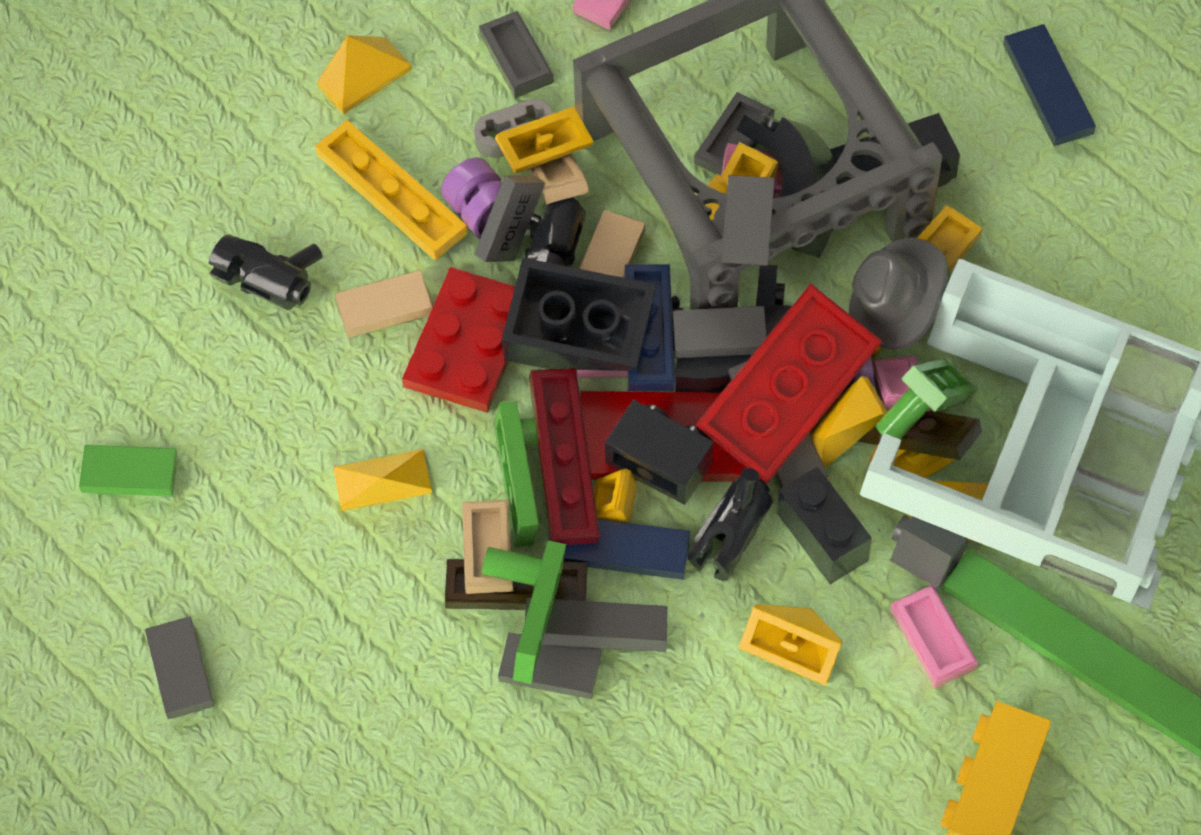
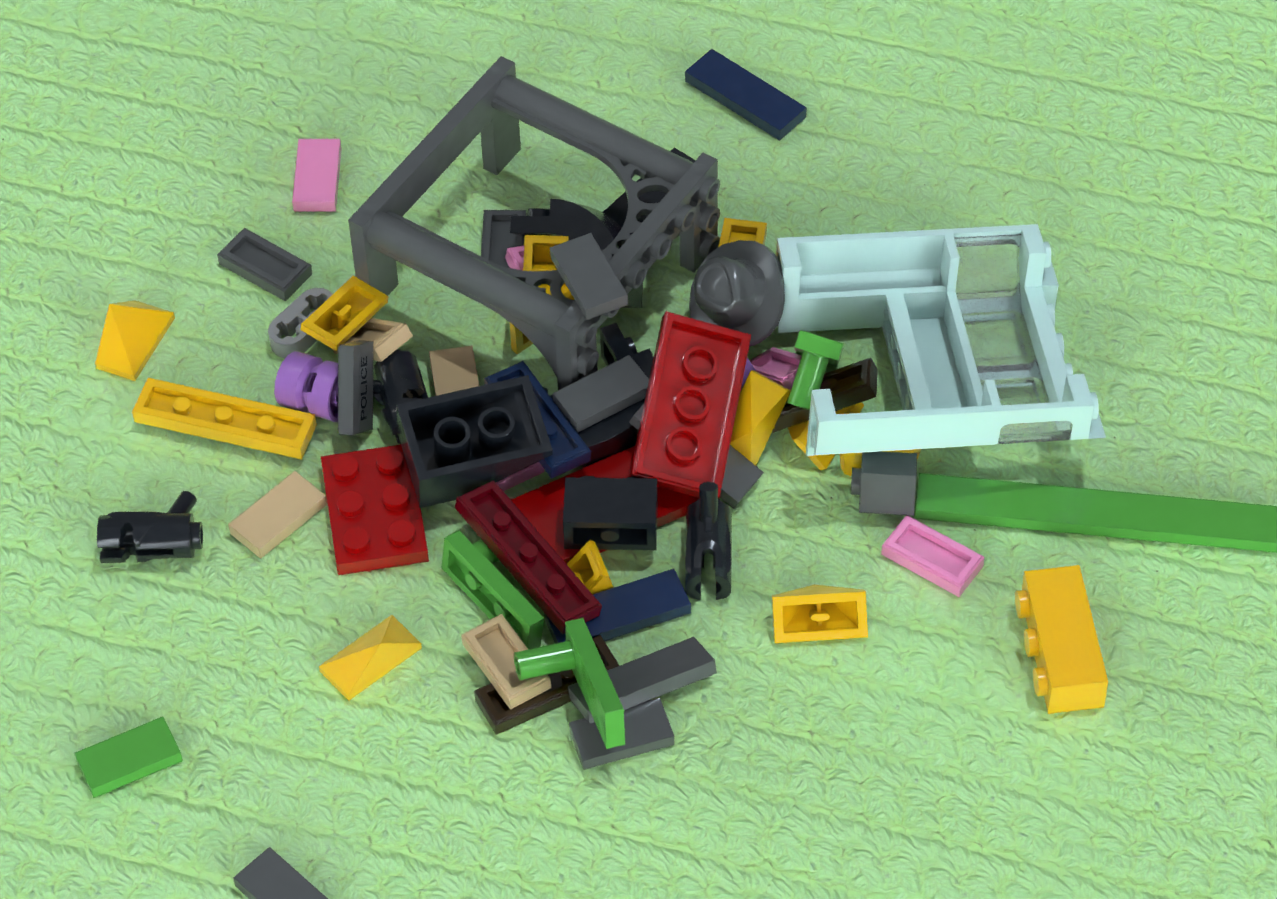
camera: 30 degrees left, 10 degrees down
(824, 525) = (787, 509): black brick -> none

